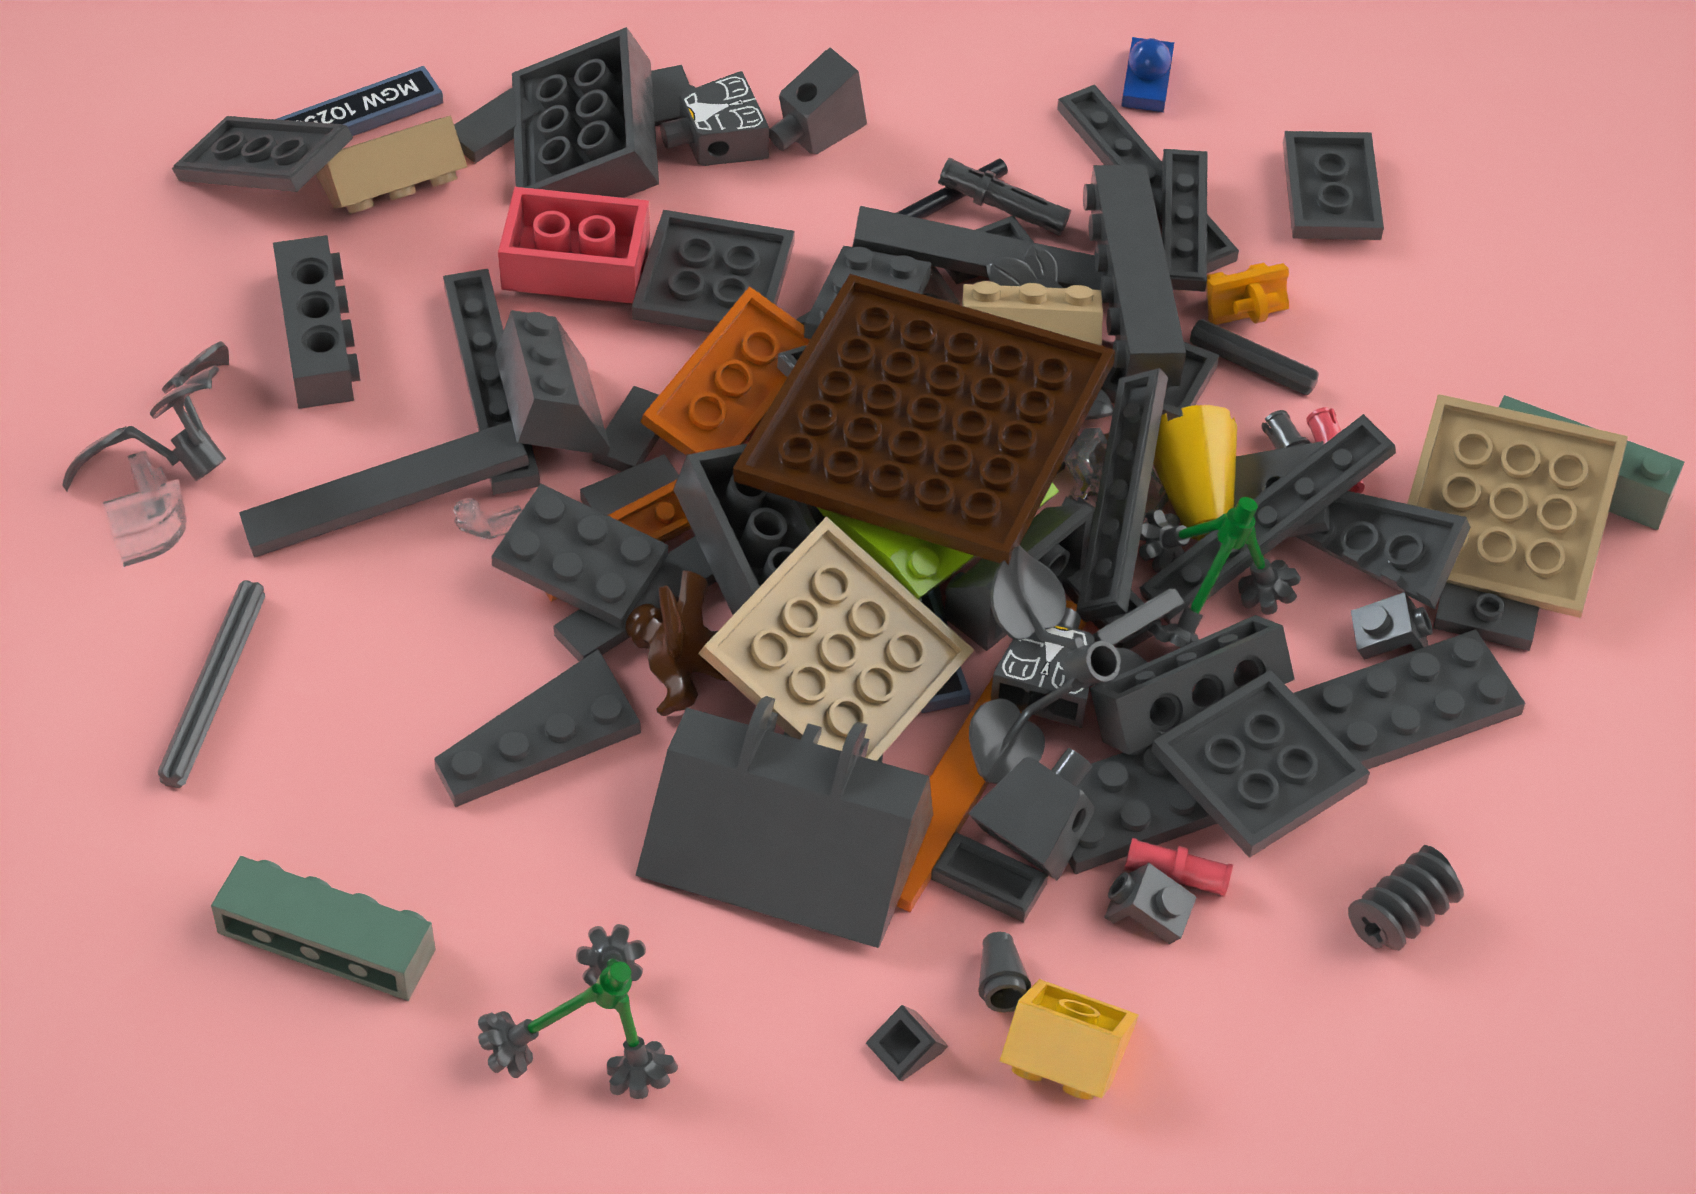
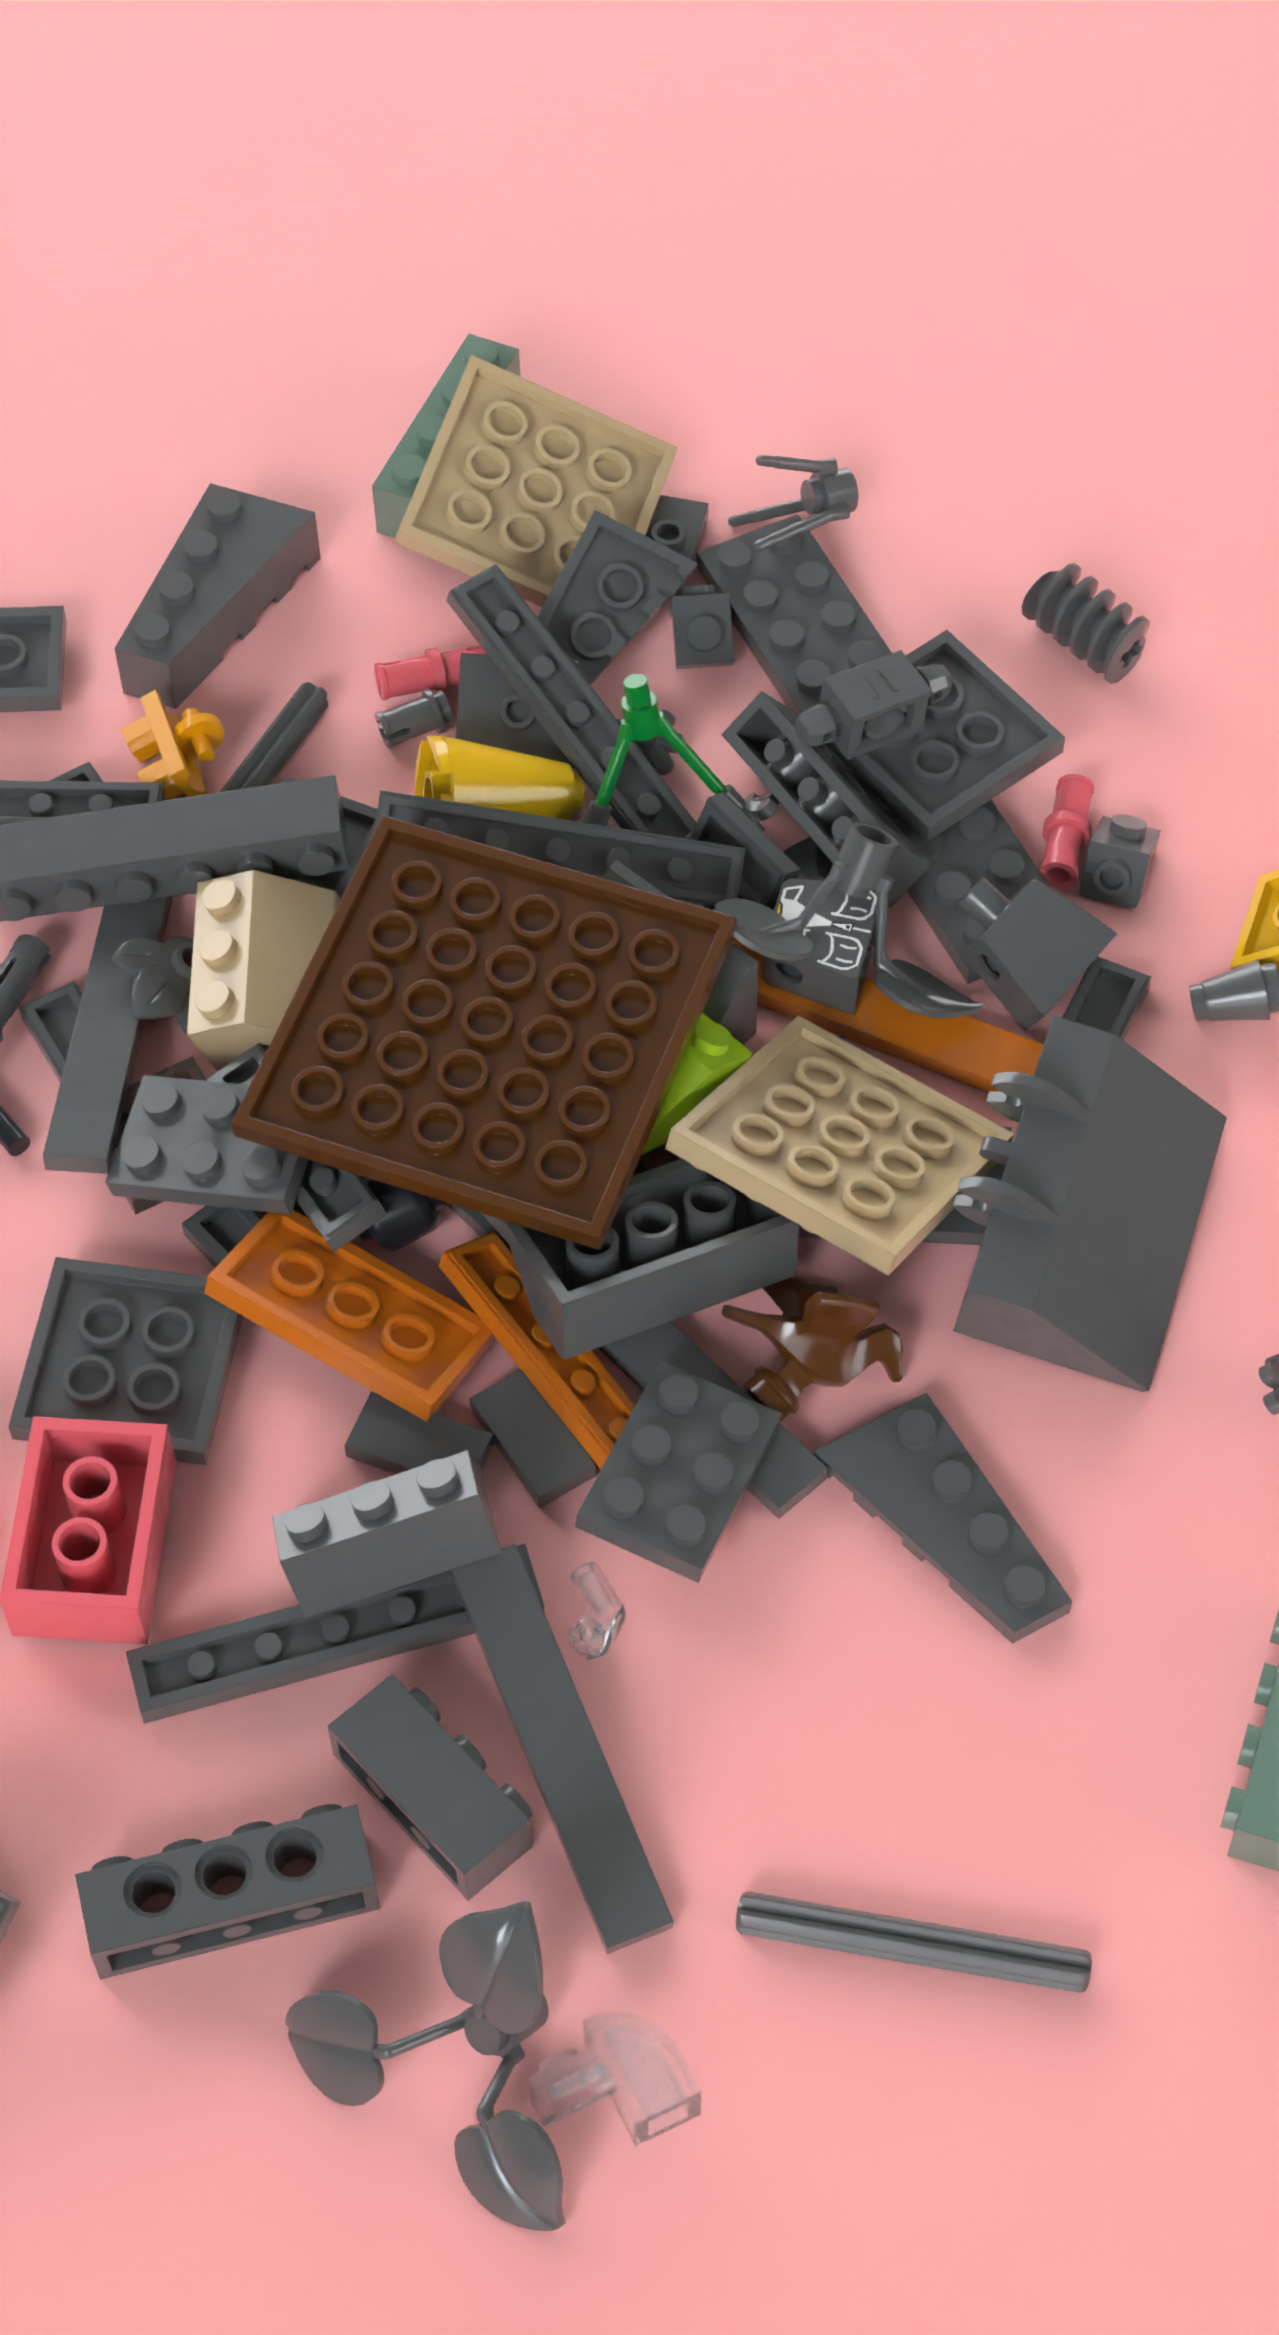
camera: 90 degrees left, 5 degrees up
(367, 421) = (432, 1785): none -> dark grey brick
(1263, 694) = (873, 704): none -> dark grey piece
(1402, 311) = (211, 588): none -> dark grey wedge
(1543, 717) = (828, 494): none -> dark grey plant

